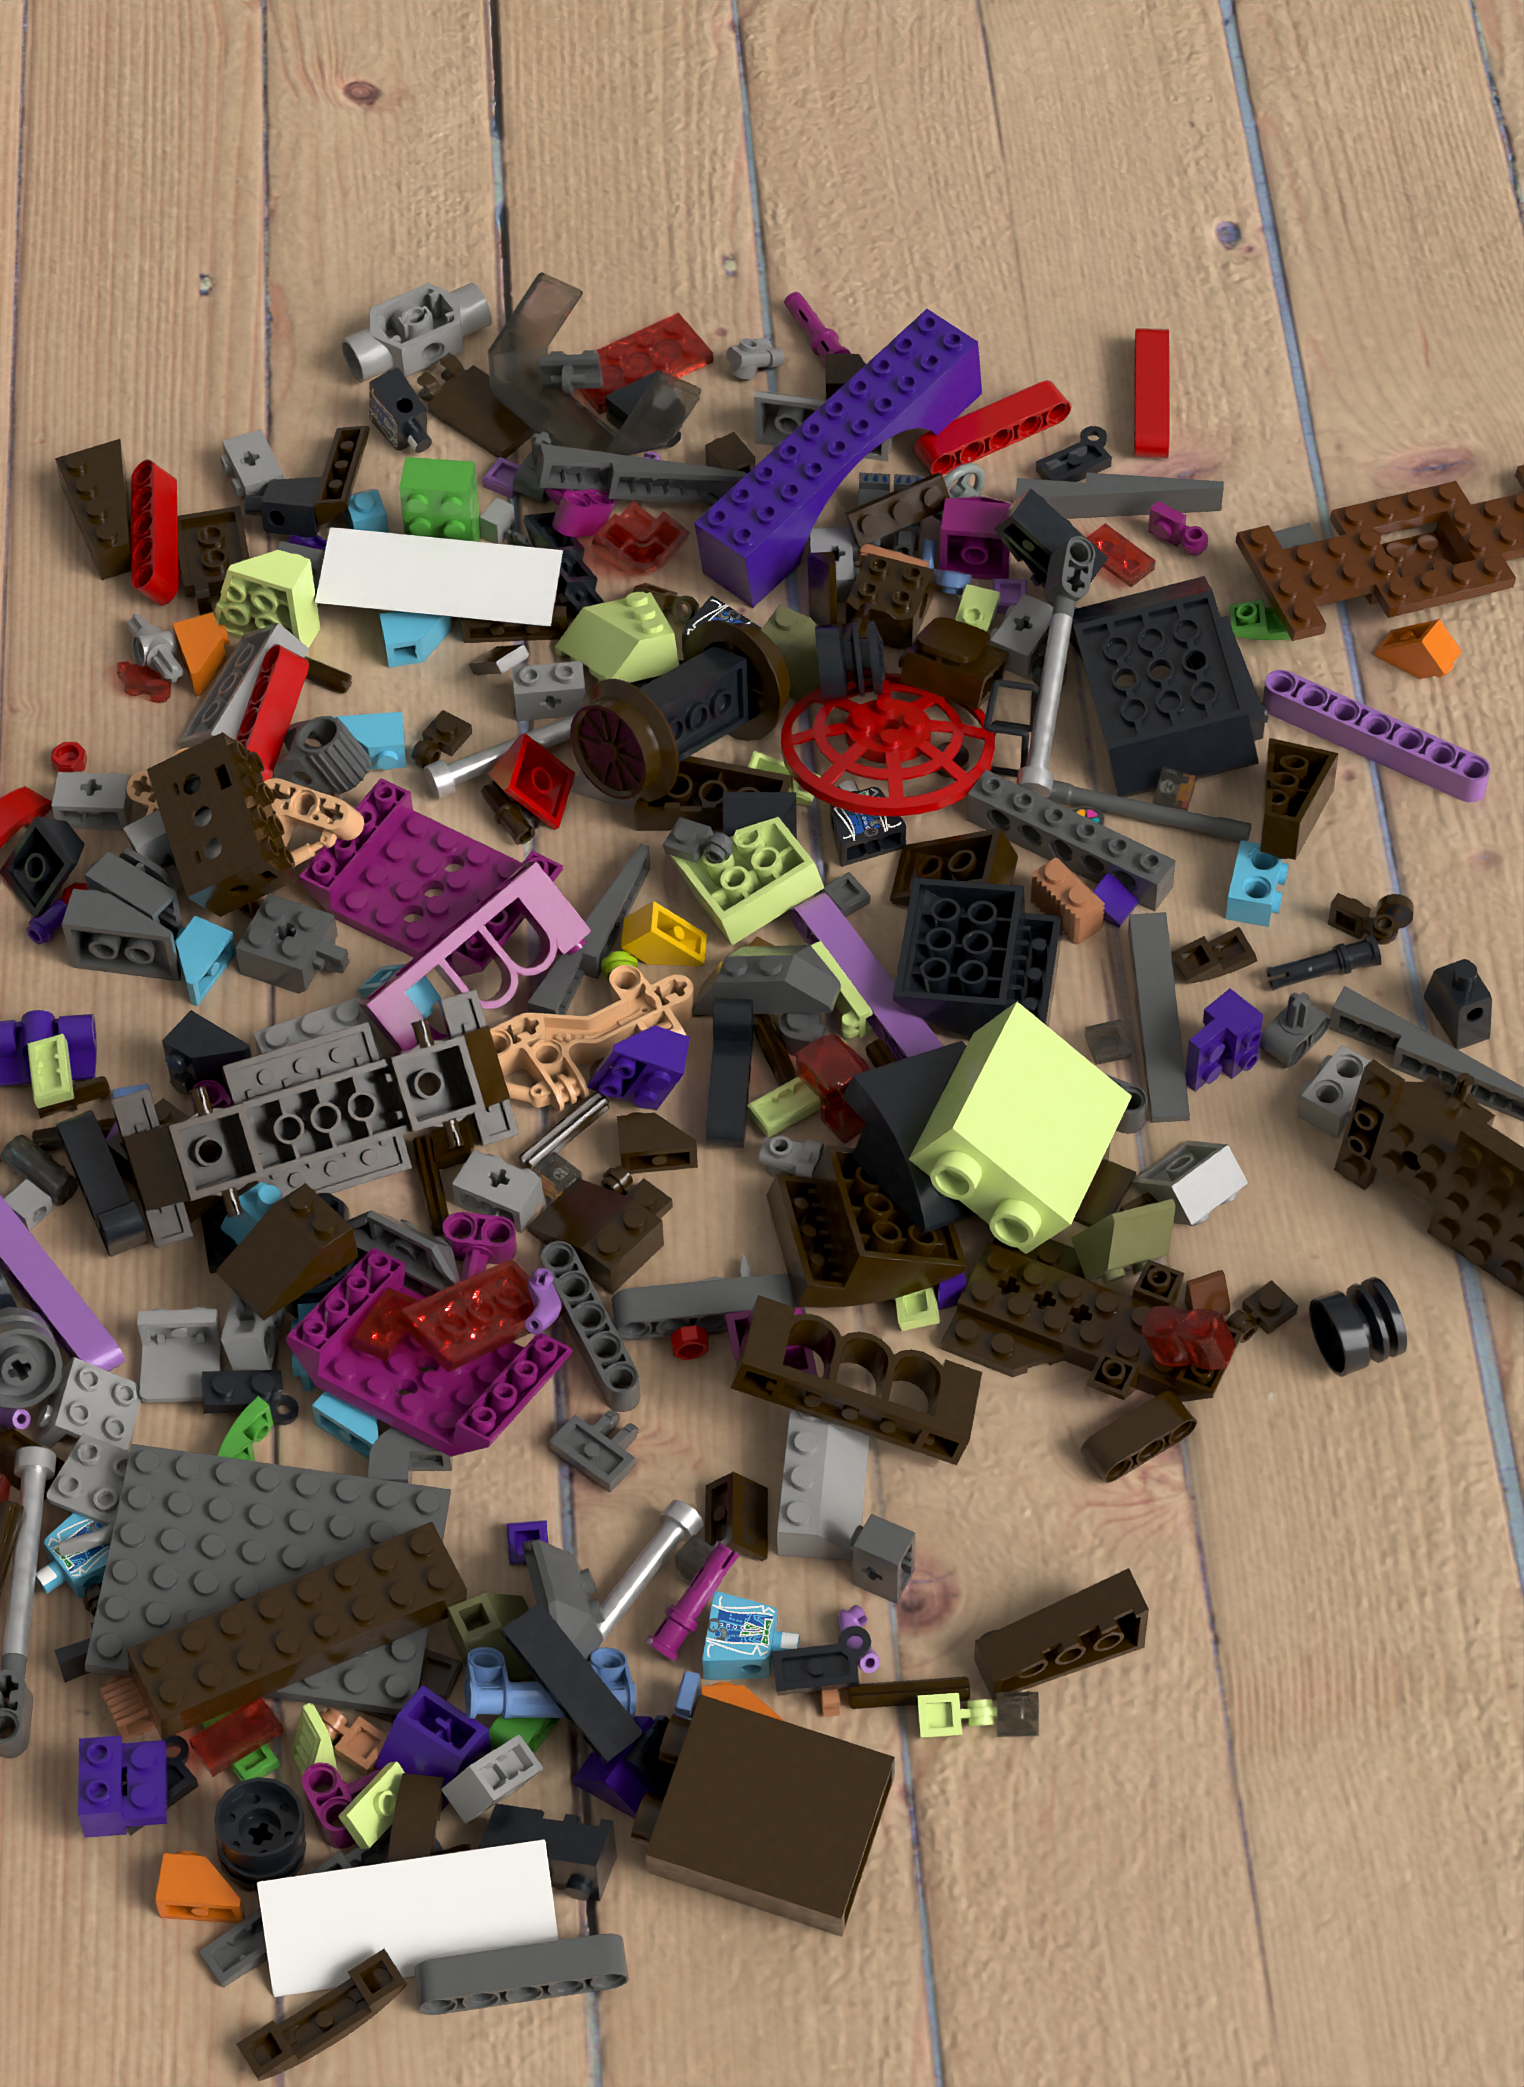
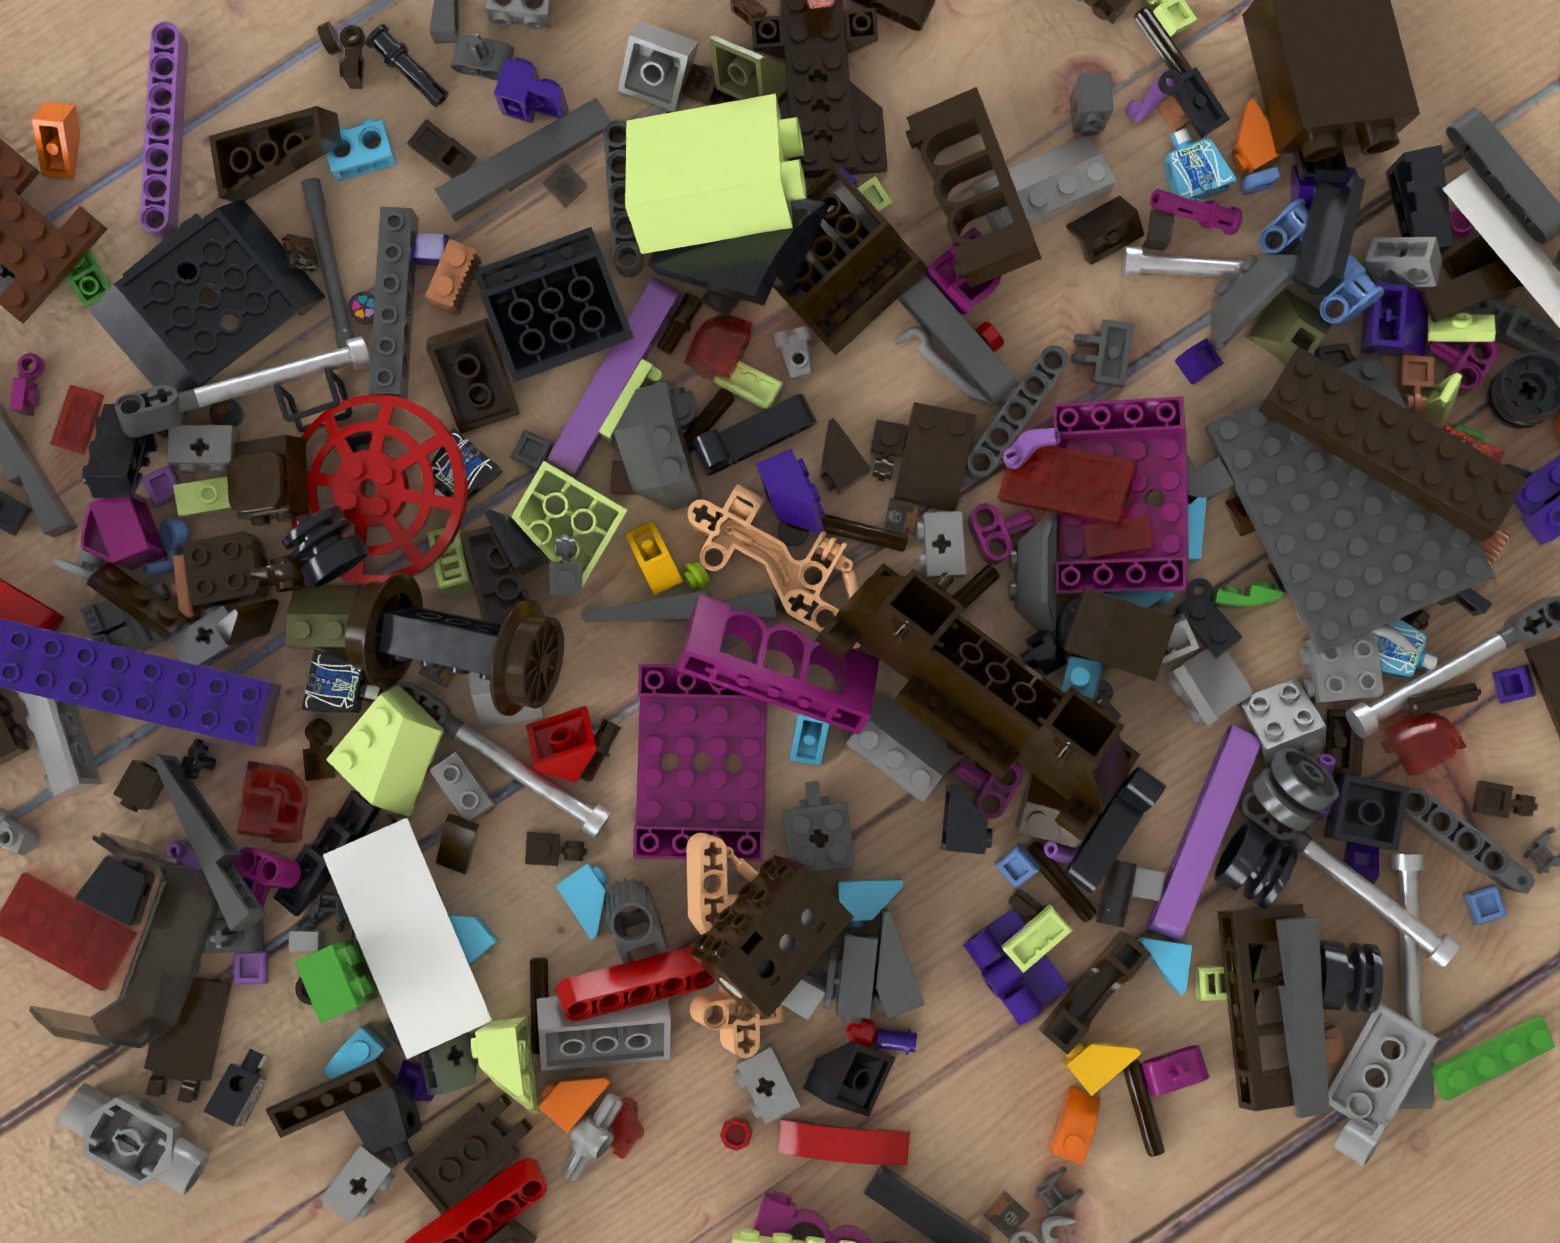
camera: 120 degrees left, 30 degrees up
(570, 371) = (118, 971): dark grey hips -> none

